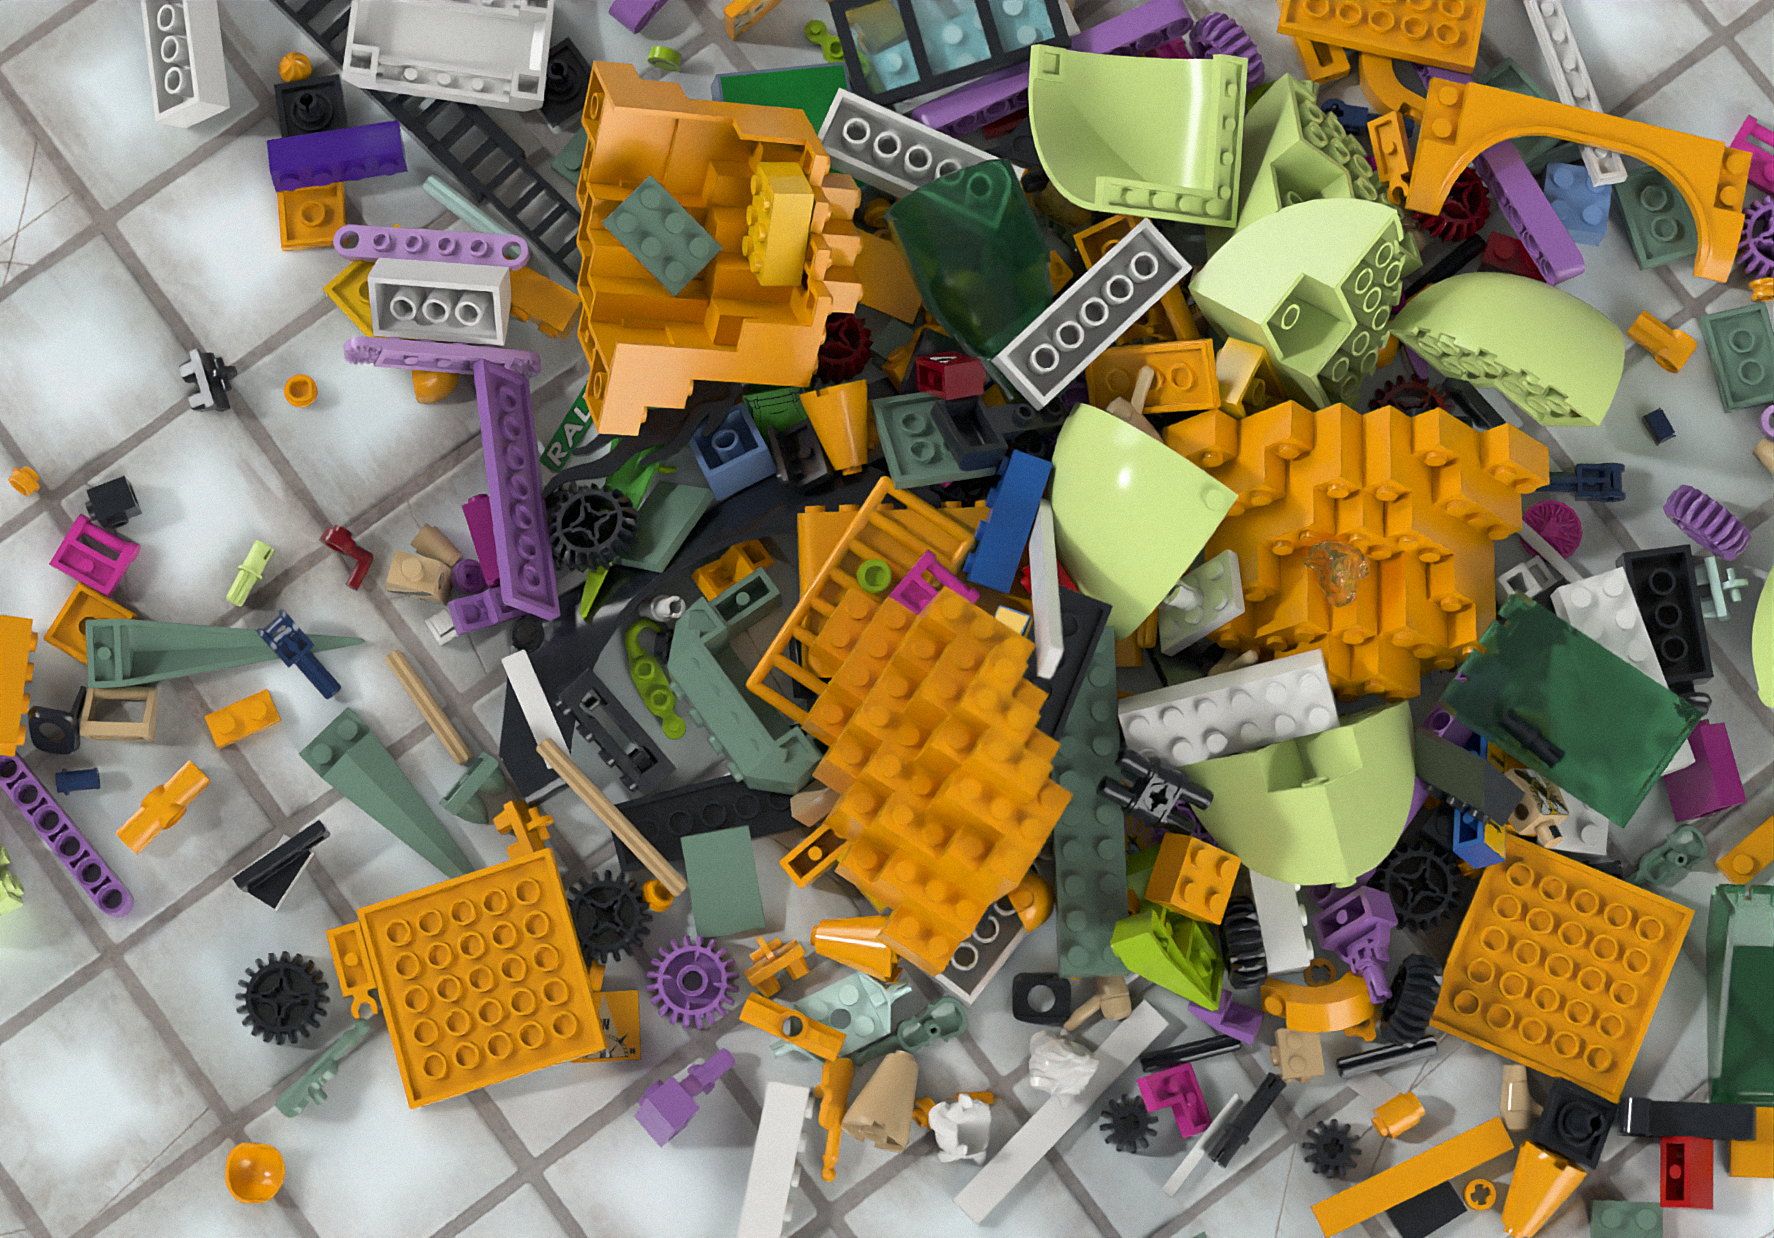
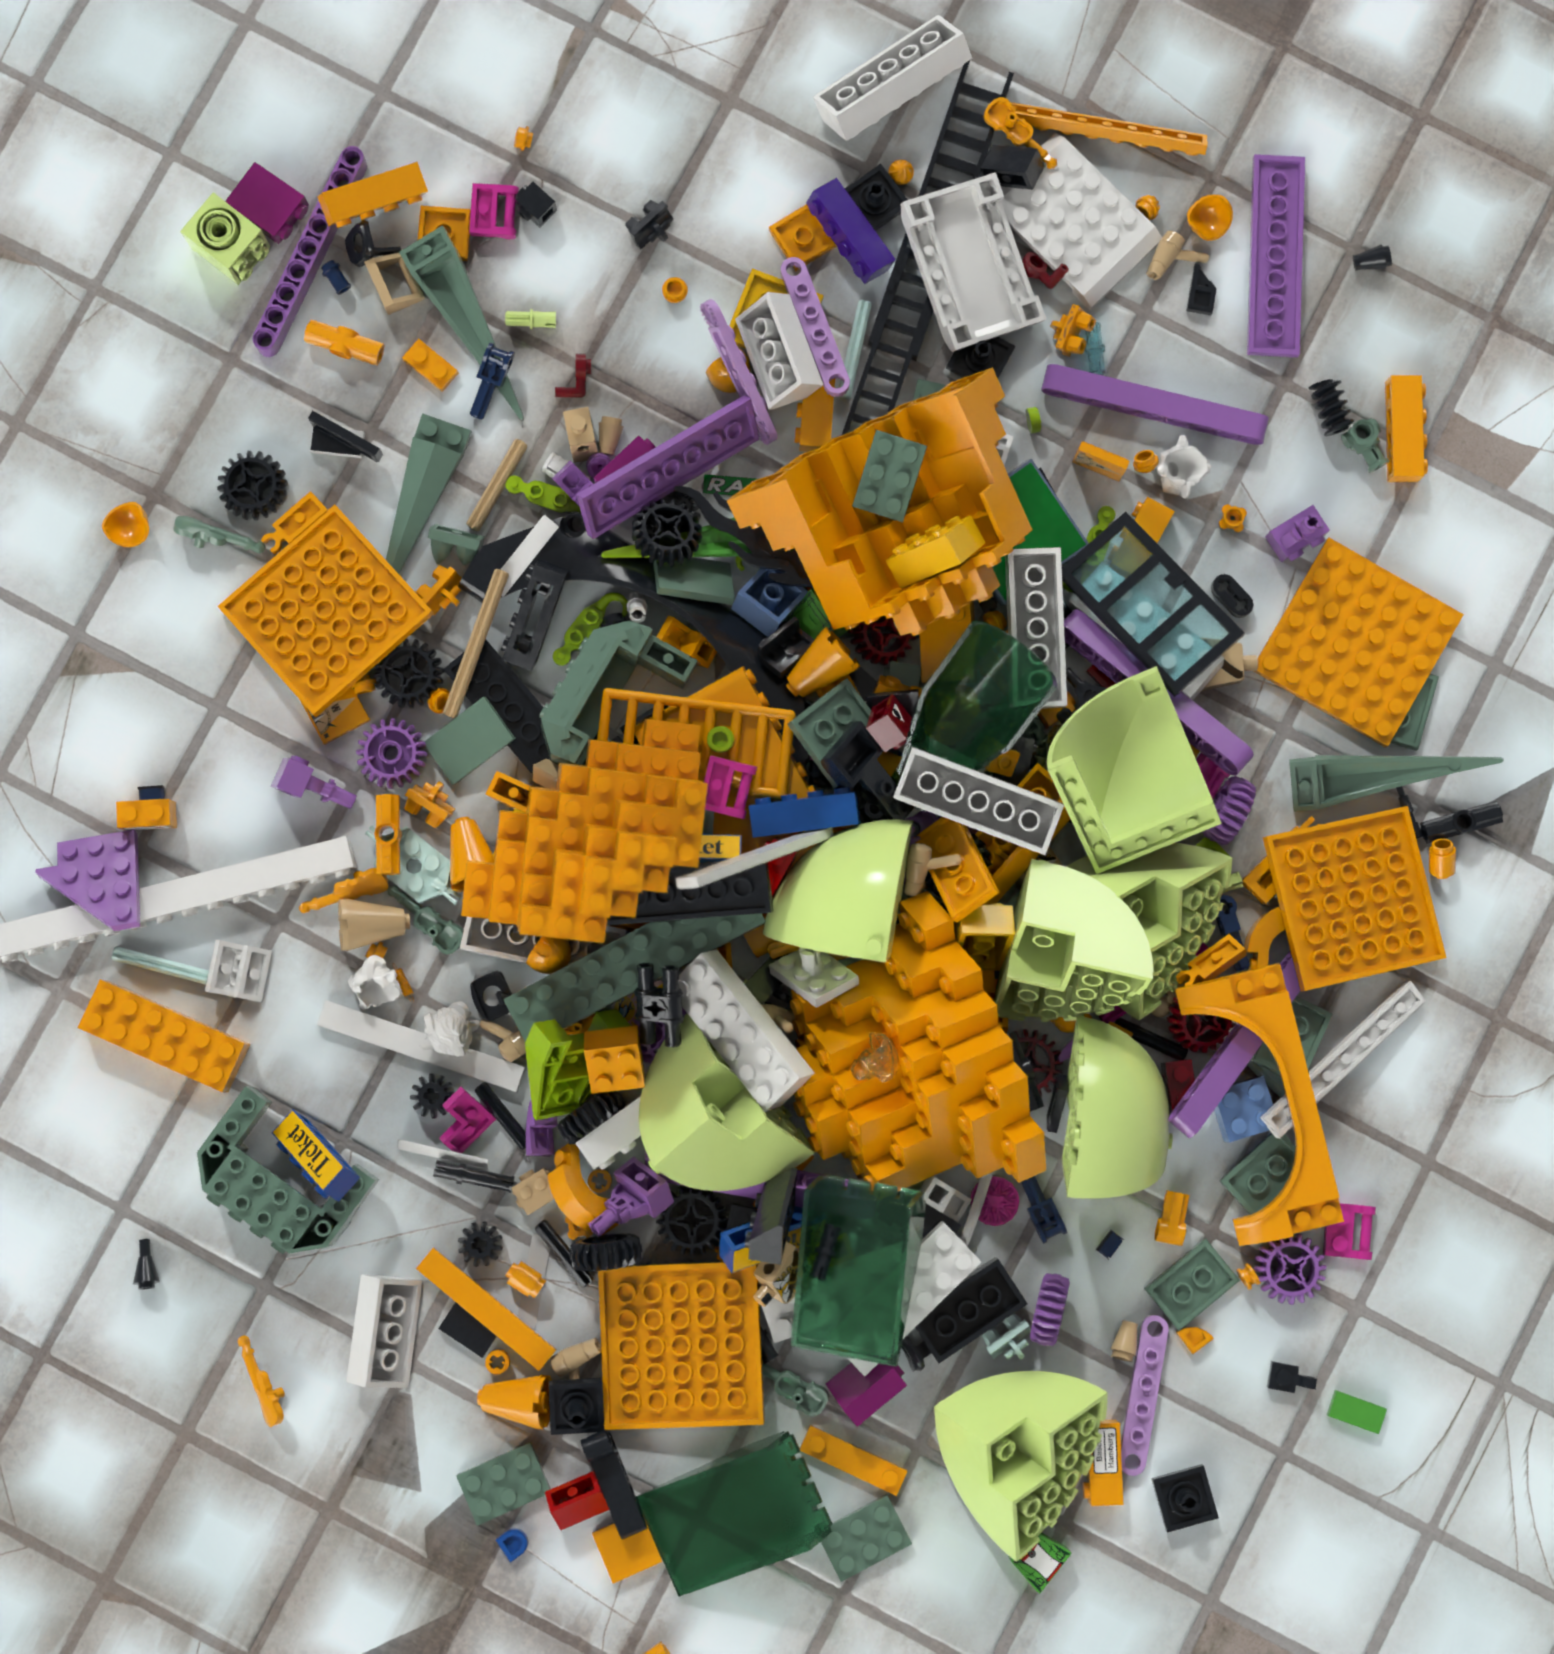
camera: 60 degrees right, 5 degrees up
(469, 658) = (542, 494): none -> lime piece

